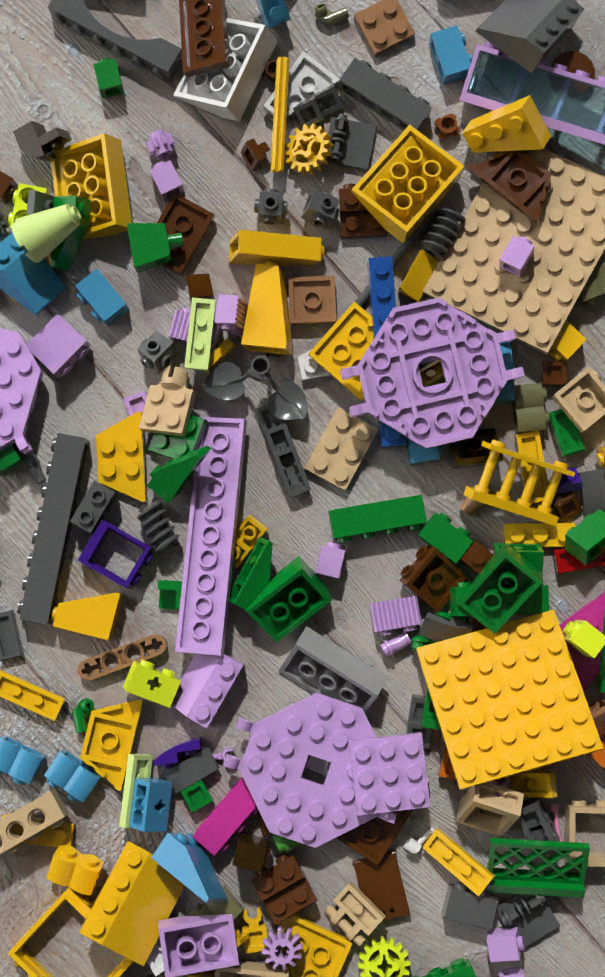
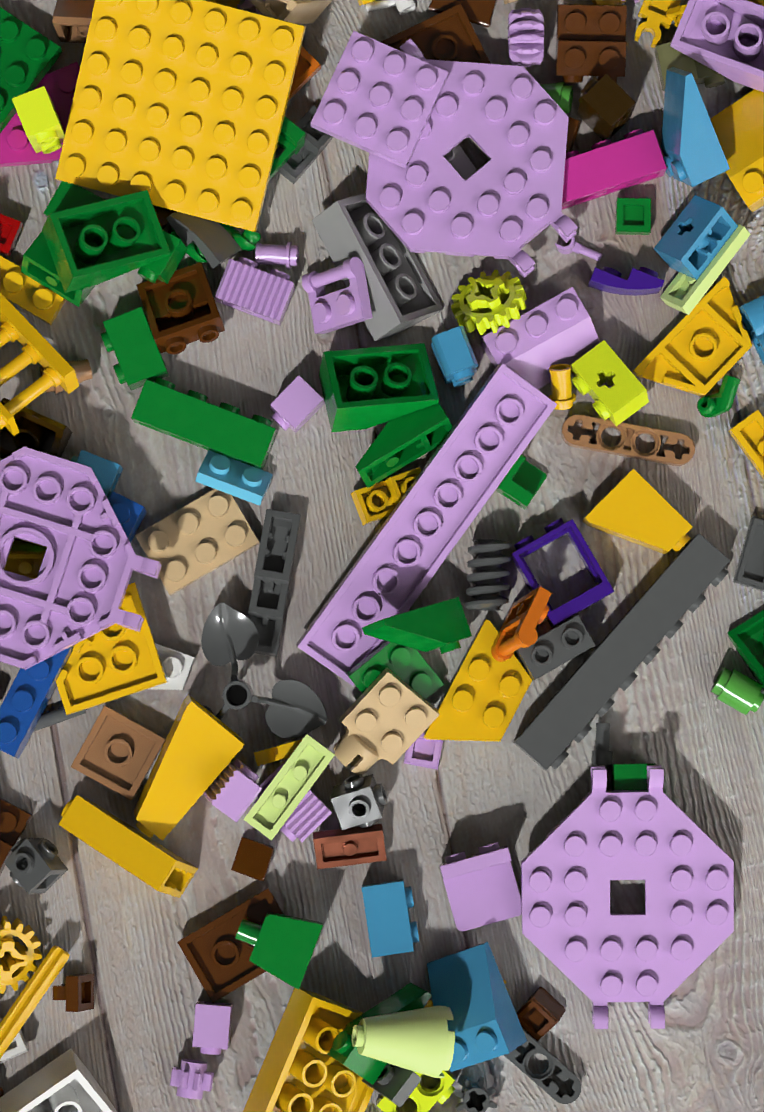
camera: 150 degrees left, 0 degrees up
(122, 513) = (520, 624): none -> orange plate
(145, 325) = (349, 846): none -> copper plate
(177, 661) = (561, 386): none -> yellow pin
(191, 770) = (621, 250): dark grey slope -> none
(252, 644) = (454, 356): none -> dark azure brick
(252, 689) = (489, 302): none -> neon yellow gear
(273, 214) = (111, 904): dark grey brick -> none
(325, 867) = (525, 37): none -> lavender gear
(337, 634) = (340, 307): none -> lavender plate
(341, 496) = (234, 477): none -> medium azure plate
(476, 557) = (110, 299): reddish brown brick -> none

